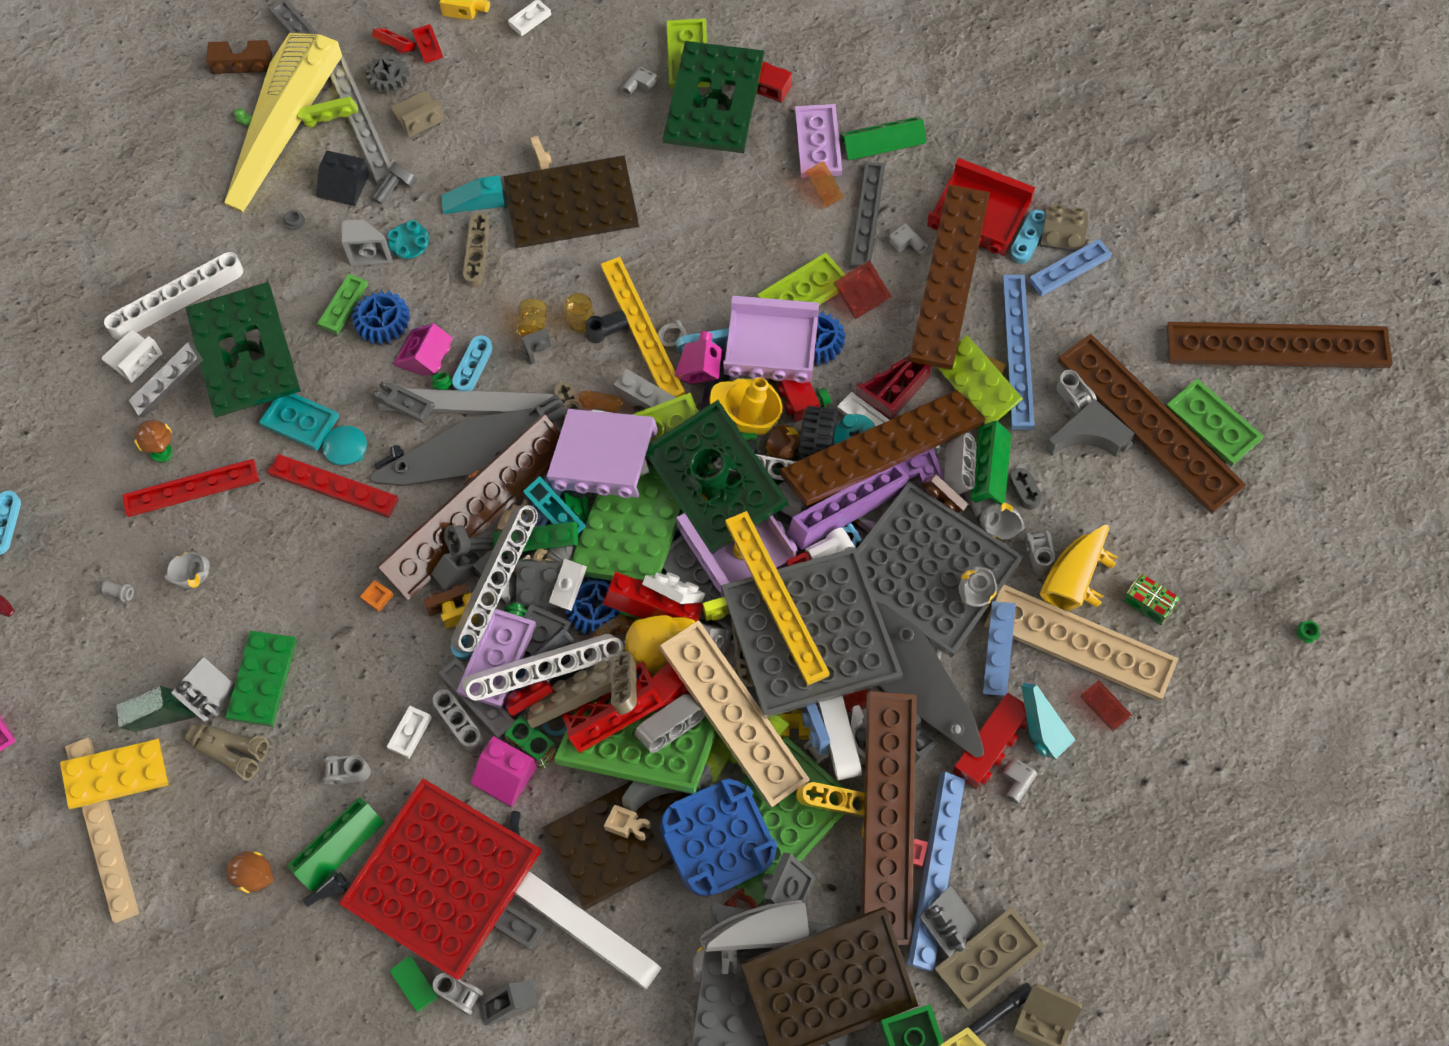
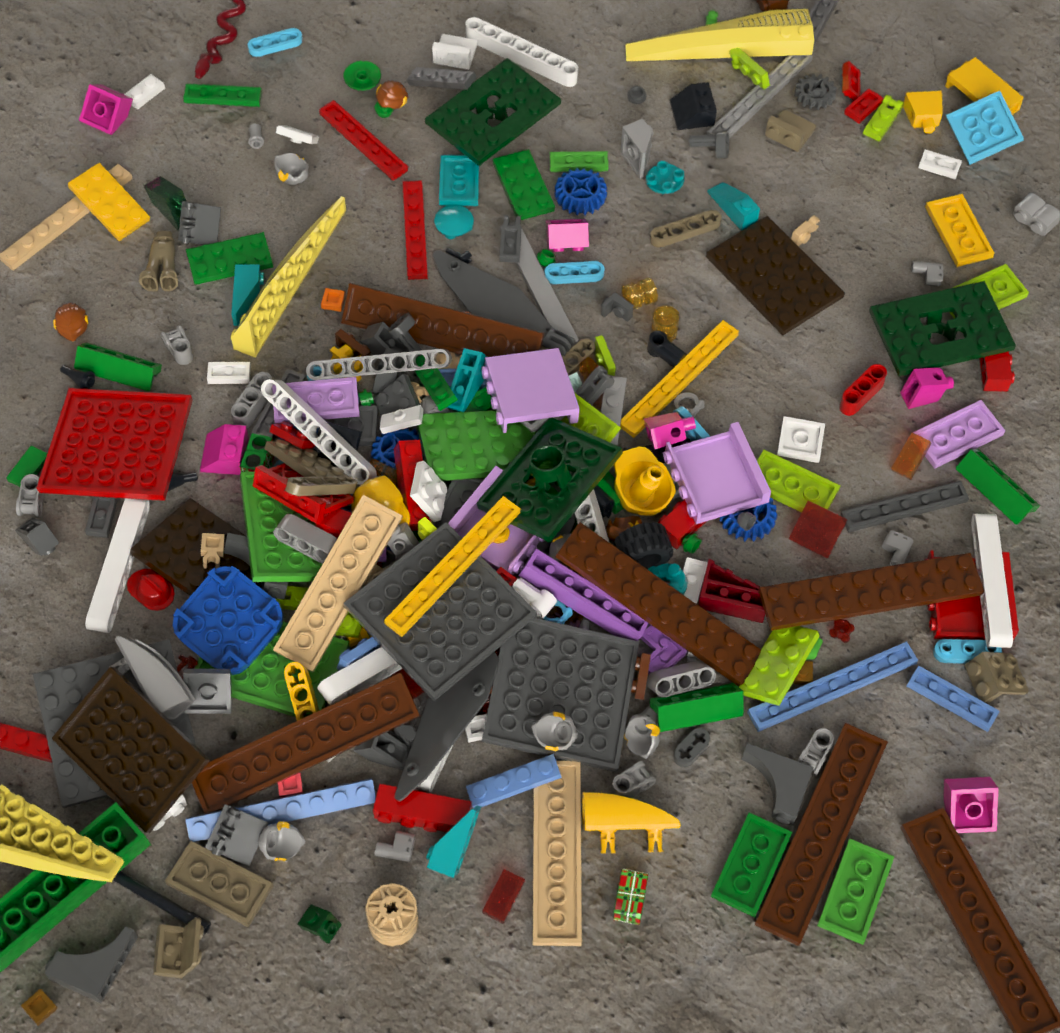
camera: 60 degrees right, 5 degrees down
(40, 603) = (222, 95): none -> green plate
(104, 447) = (362, 75): none -> green dish
(144, 548) = (297, 135): none -> white plate
(310, 673) = (245, 290): none -> teal slope
(339, 365) = (523, 184): none -> green plate
(344, 651) = (284, 282): none -> light yellow wedge
(449, 36) = (883, 118): none -> lime plate
(586, 380) = (603, 355): none -> lime plate
(609, 37) = (959, 230): none -> yellow plate
(622, 404) = (590, 389): none -> dark grey plate
(627, 908) = (151, 589): none -> red piece
(741, 195) = (870, 387): none -> red beam
(760, 261) = (801, 439): none -> white plate
(761, 131) = (925, 387): none -> dark pink torso
(831, 339) = (746, 520): none -> dark grey hinge
(972, 320) = (844, 625): none -> clear red plate
(972, 882) = (280, 841): none -> light grey hair
(1002, 191) = (992, 576): none -> white beam
(1067, 880) = (320, 922): none -> dark green bracket
(1089, 821) = (395, 927): none -> tan wheel
(1158, 490) = (751, 864): none -> green plate
(1172, 298) = (971, 804): none -> dark pink slope

